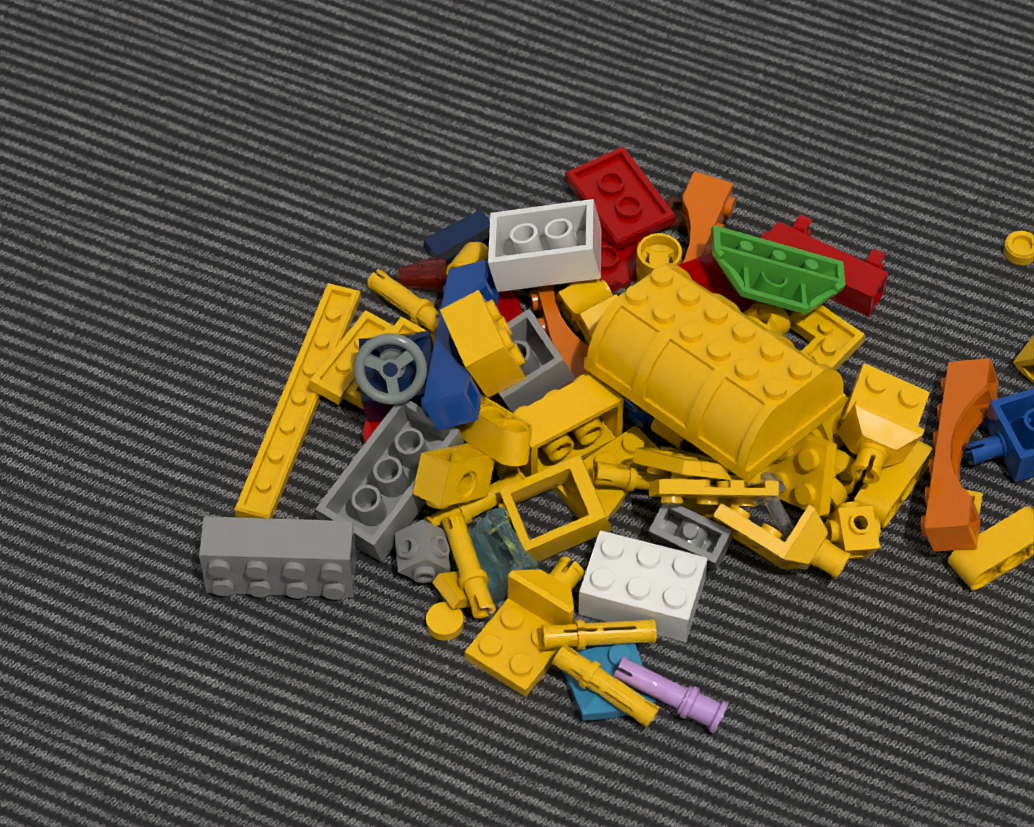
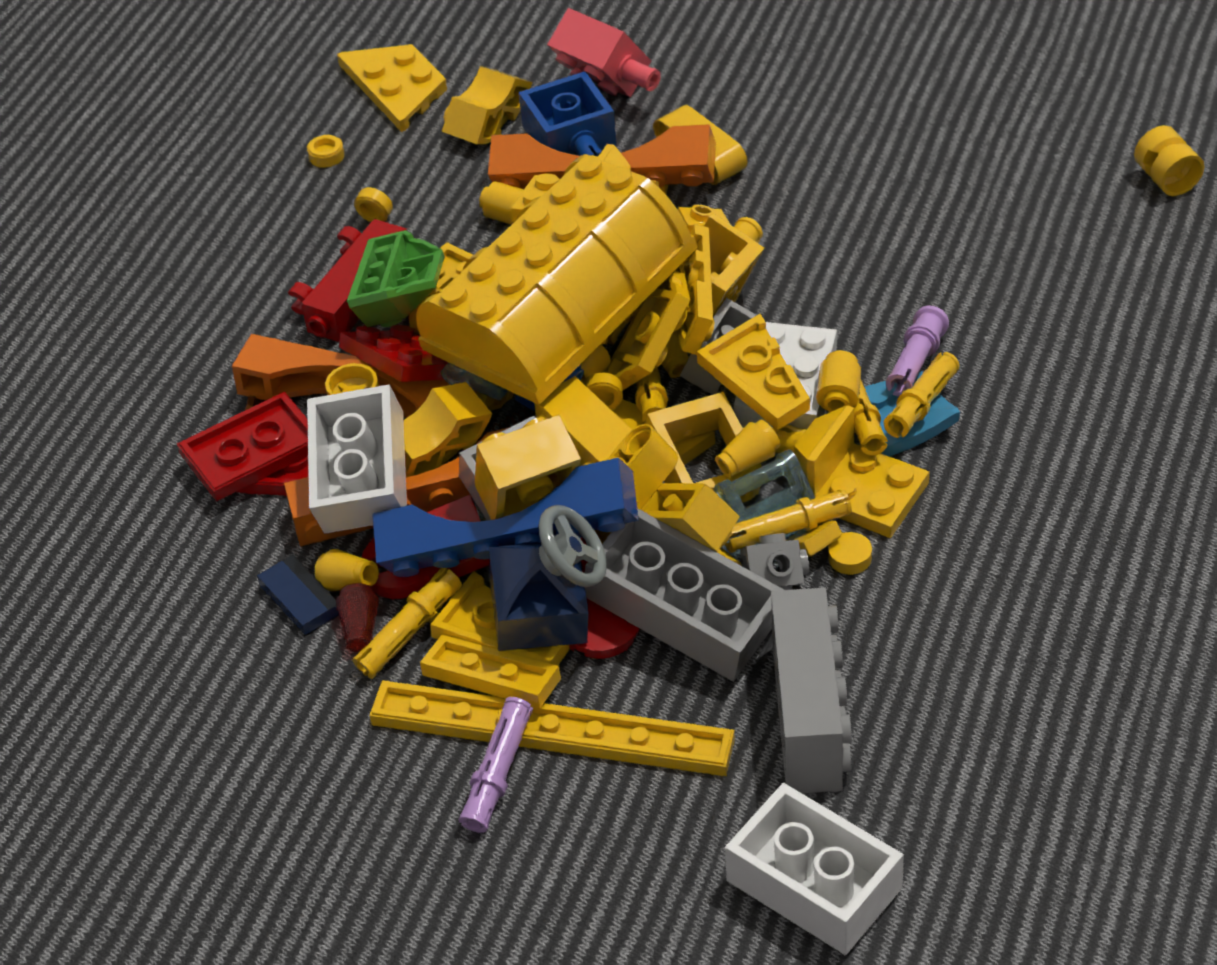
camera: 90 degrees left, 10 degrees down
(116, 549) = (814, 868): none -> white brick
(247, 355) = (489, 781): none -> lavender pin
(533, 530) = (750, 447): none -> yellow cone
(607, 607) = (838, 381): none -> yellow brick
(618, 538) = (755, 371): none -> yellow wing
(632, 434) = (606, 388): none -> yellow tile
(925, 375) = (498, 200): none -> yellow brick
(927, 280) = (373, 204): none -> yellow tile

